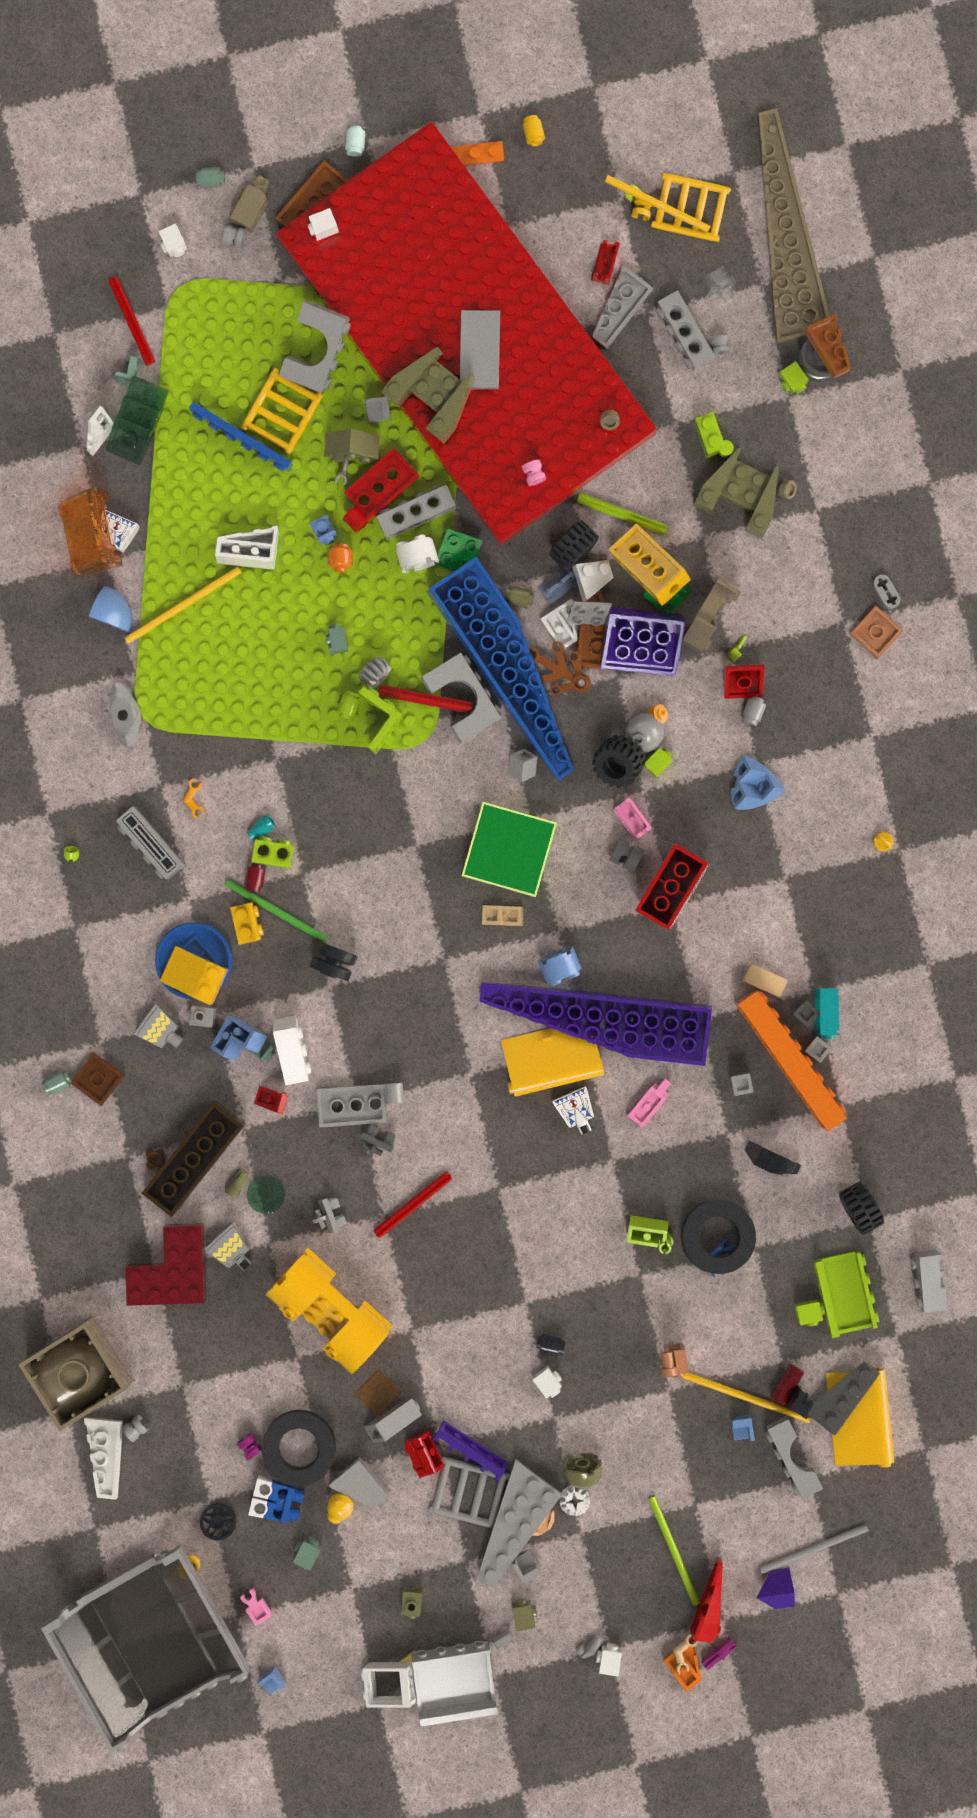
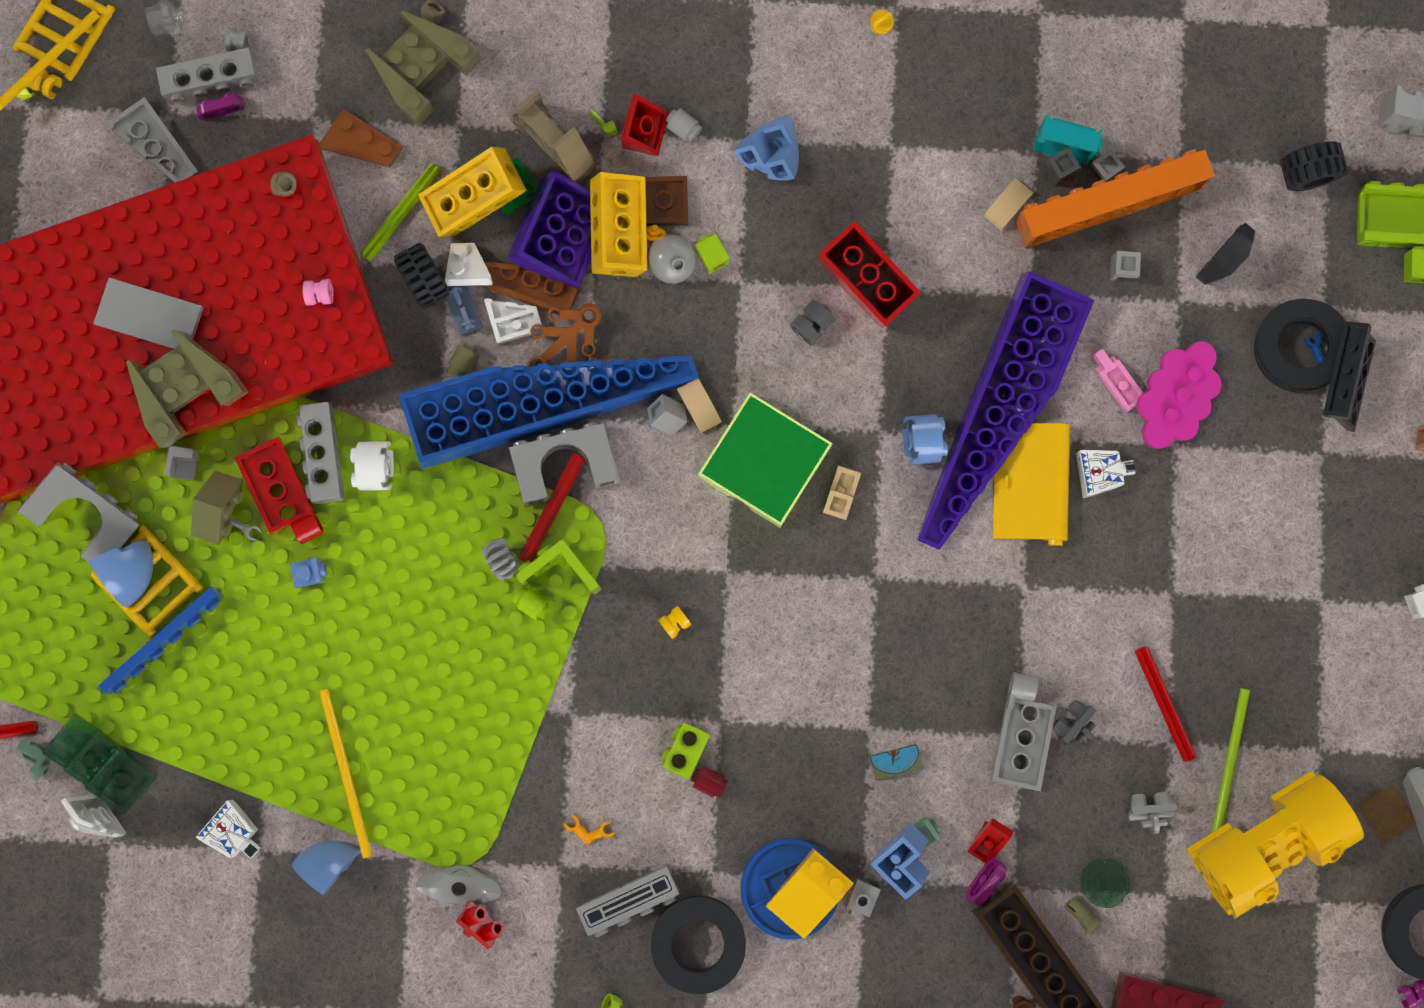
camera: 70 degrees left, 5 degrees down
(88, 532) = (218, 865): clear orange windscreen -> none
(100, 738) = (479, 925): none -> red hips
(106, 909) = (694, 980): none -> black tyre
(159, 1028) = (862, 957): light grey torso -> none
(230, 1248) = (1160, 947): light grey torso -> none
(241, 1105) = (986, 881): none -> magenta plate
(246, 923) = (762, 809): yellow bracket -> none
(249, 549) = (302, 670): white wedge -> none
(262, 826) = (648, 753): teal cone -> none
(275, 910) = (757, 767): bright green piece -> none
(283, 394) = (125, 571): none -> medium blue brick
(290, 1050) = (935, 798): white wedge -> none
(310, 1013) = (896, 762): none -> slope
(333, 962) = (841, 713): black wheel -> none
(336, 639) = (446, 594): sand green brick -> none
(340, 557) = (348, 561): orange head -> none
(366, 817) = (674, 622): none -> yellow wheel
(386, 1265) = (1231, 759): none -> lime piece
(457, 549) = (382, 417): green hinge -> none
(537, 787) = (699, 405): none -> tan slope
(550, 1345) = (1382, 584): black brick -> none
(588, 613) = (507, 281): light grey hinge -> none
(605, 262) = (95, 144): red hinge -> none
(624, 750) = (709, 308): black tyre -> none
(632, 818) = (770, 303): bright pink hinge -> none
(650, 1233) = (1277, 425): lime hinge -> none
(652, 1152) = (1179, 395): none -> dark pink plate
(659, 341) = (214, 108): none -> magenta plate
(664, 694) = (618, 224): none -> yellow brick
(668, 464) = (359, 140): none -> dark orange wing
(689, 713) = (666, 200): none -> reddish brown plate
(703, 1272) = (1350, 374): none -> black fence
(711, 437) = (343, 80): lime hinge -> none

